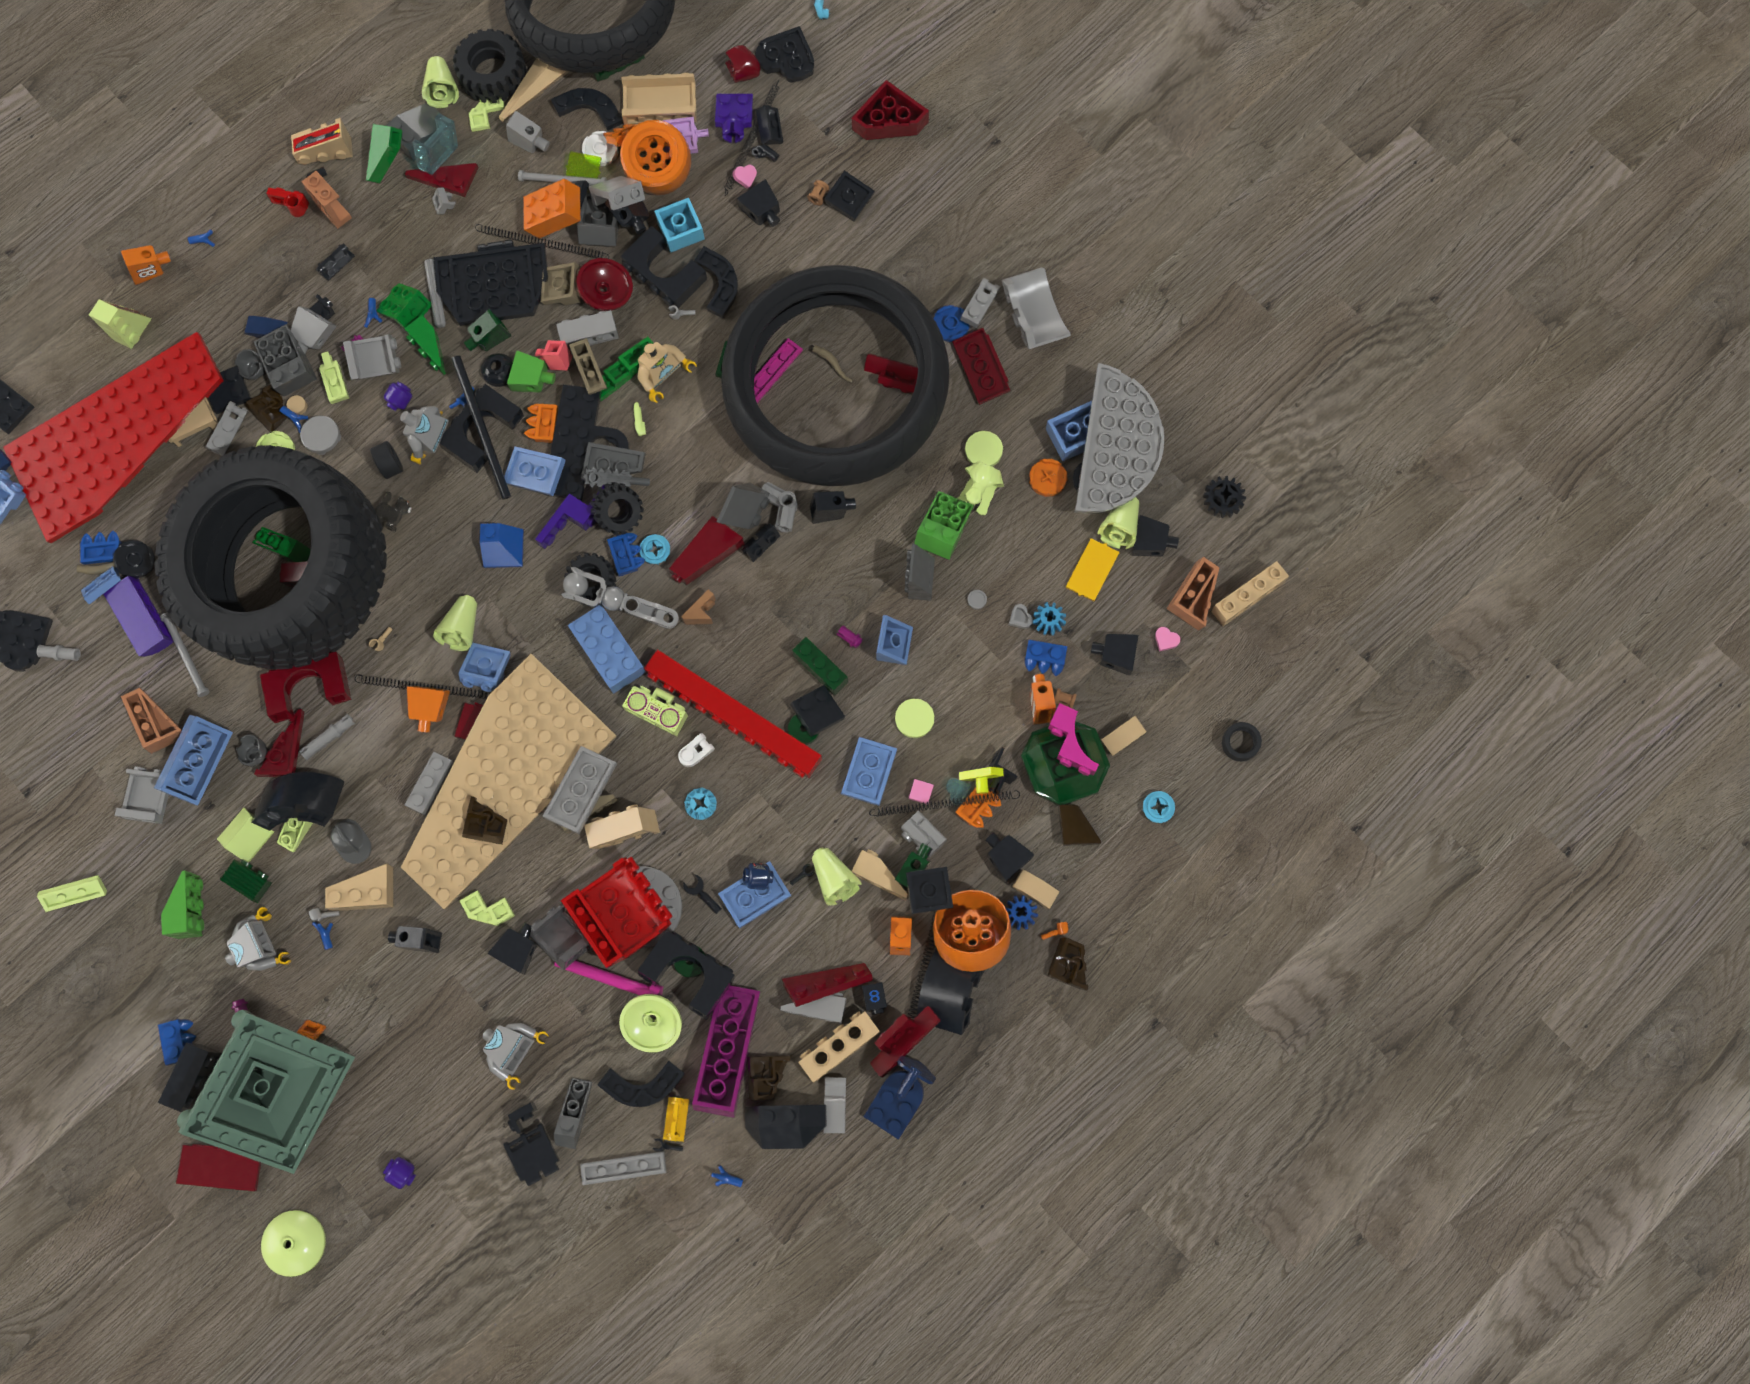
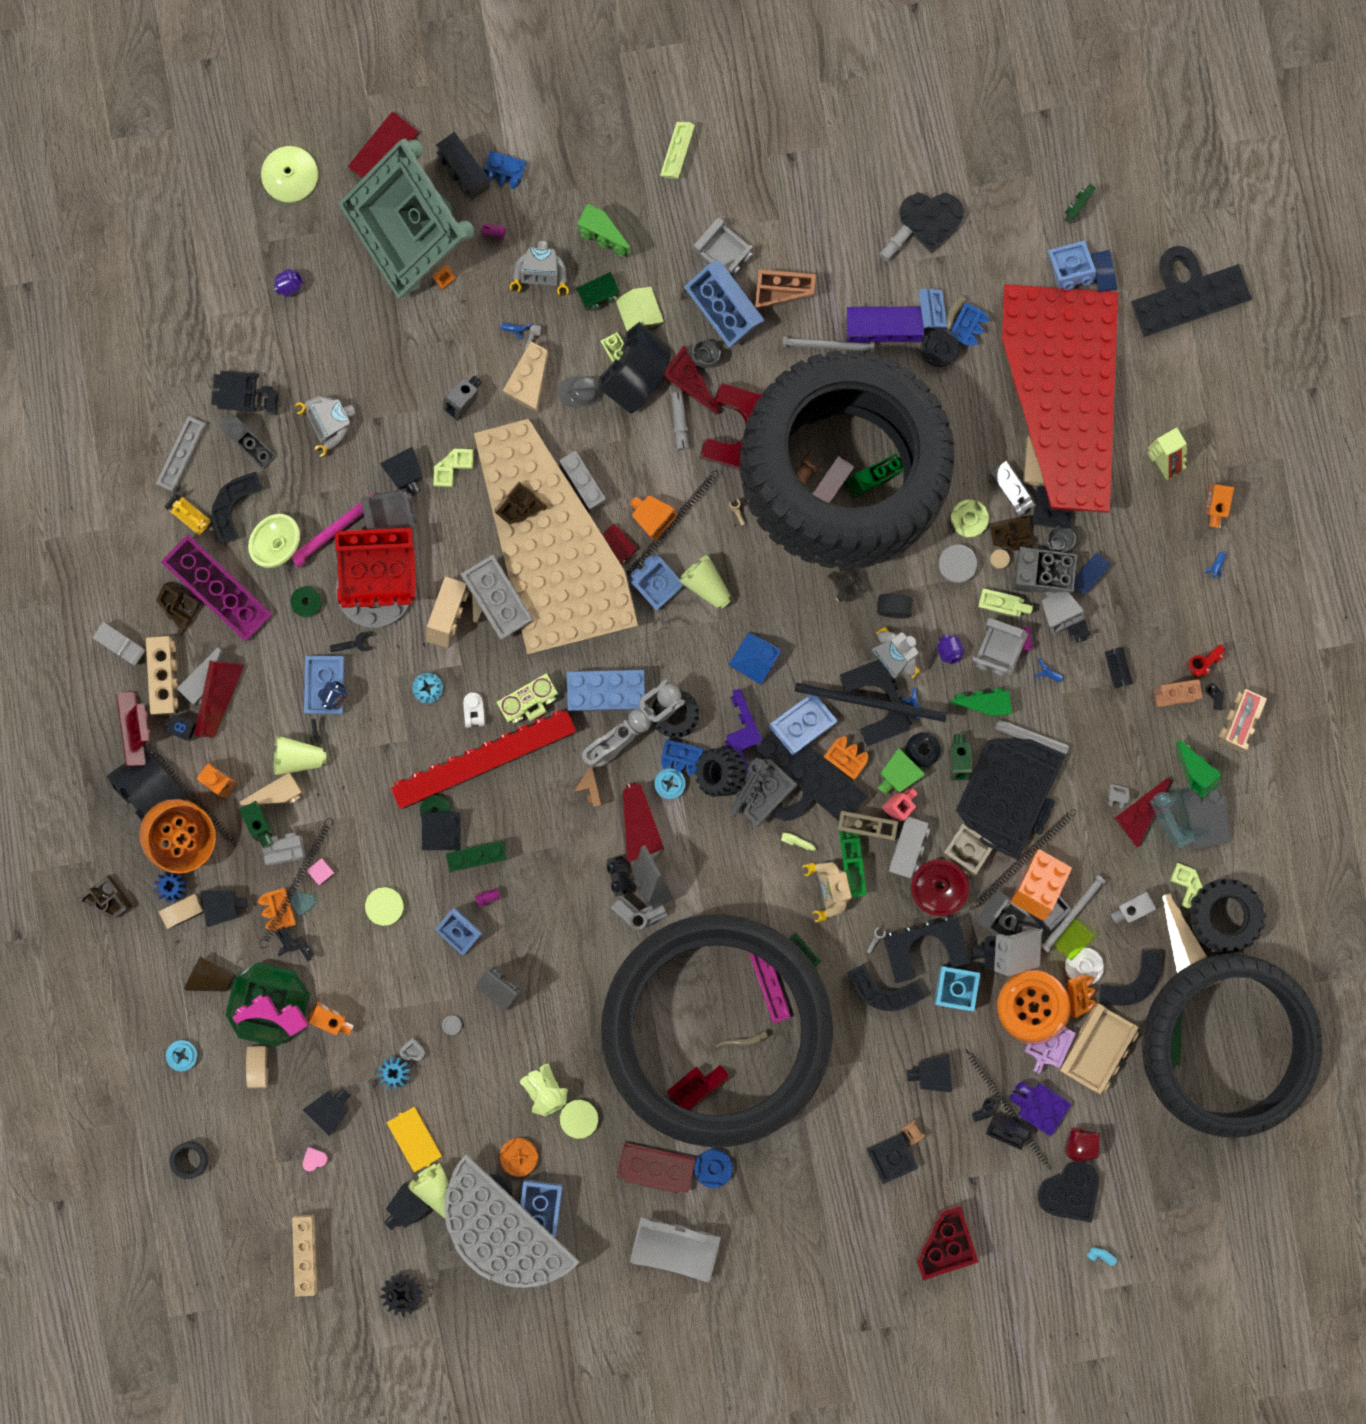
camera: 120 degrees right, 10 degrees up
(293, 416) = (987, 551): blue bar -> none
(404, 305) = (1035, 702): green bracket -> none
(438, 84) = (1240, 860): yellowish green cone -> none
(672, 950) = (274, 612): black arch -> none
(725, 1178) = (122, 526): blue bar -> none
(745, 175) = (971, 1078): bright pink tile -> none
(785, 1125) = (128, 596): black wedge -> none
(830, 506) = (611, 947): black torso -> none
(869, 771) = (363, 840): medium blue plate -> none
(896, 1100) = (88, 691): dark blue plate -> none
(929, 890) = (227, 821): black plate -> none
(943, 525) = (532, 1039): bright green slope -> none
(980, 303) = (713, 1205): light grey plate -> none
(981, 777) = (296, 926): neon yellow tile -> none
(1046, 655) = (366, 1050): blue plate -> none
(1062, 928) = (136, 910): orange hand -> none
(1064, 698) = (318, 1039): medium nougat bush -> none
(1195, 593) = (334, 1209): nougat wedge -> none

